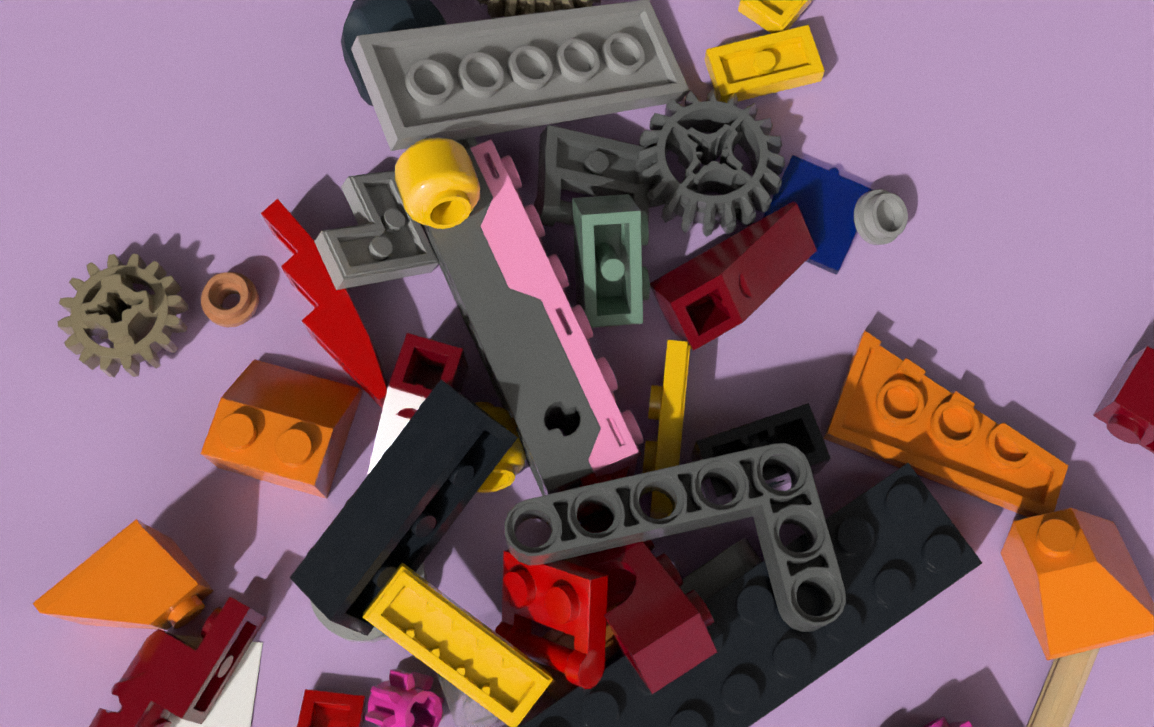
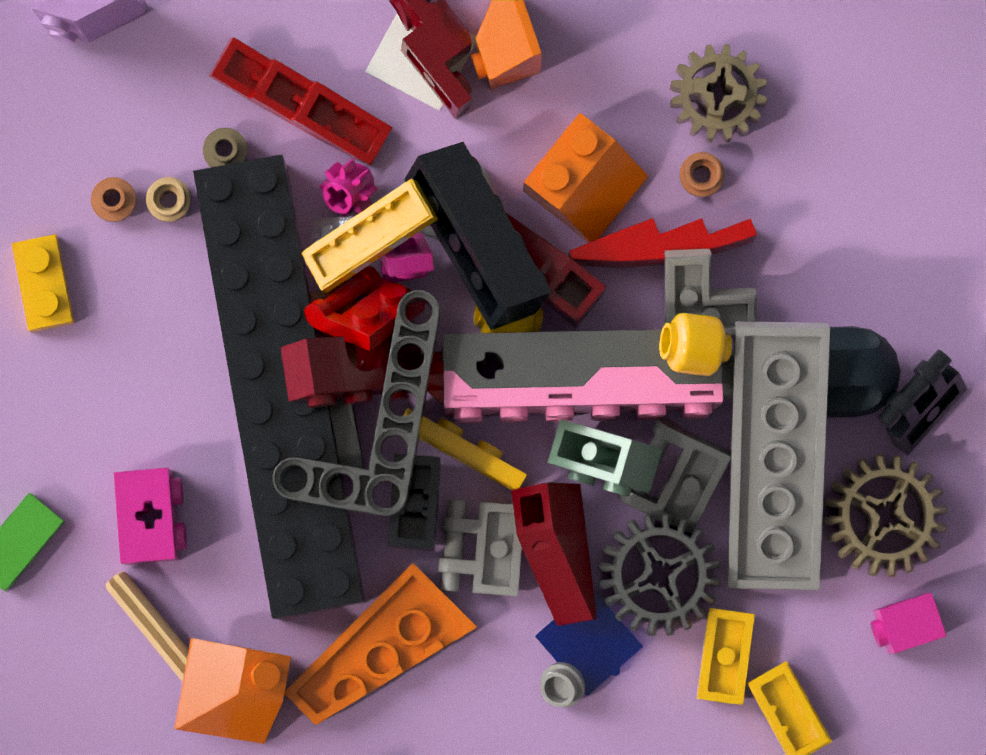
camera: 115 degrees right, 10 degrees up
(470, 587) = (408, 260): none -> dark pink bracket
(766, 347) = (497, 549): none -> light grey plate

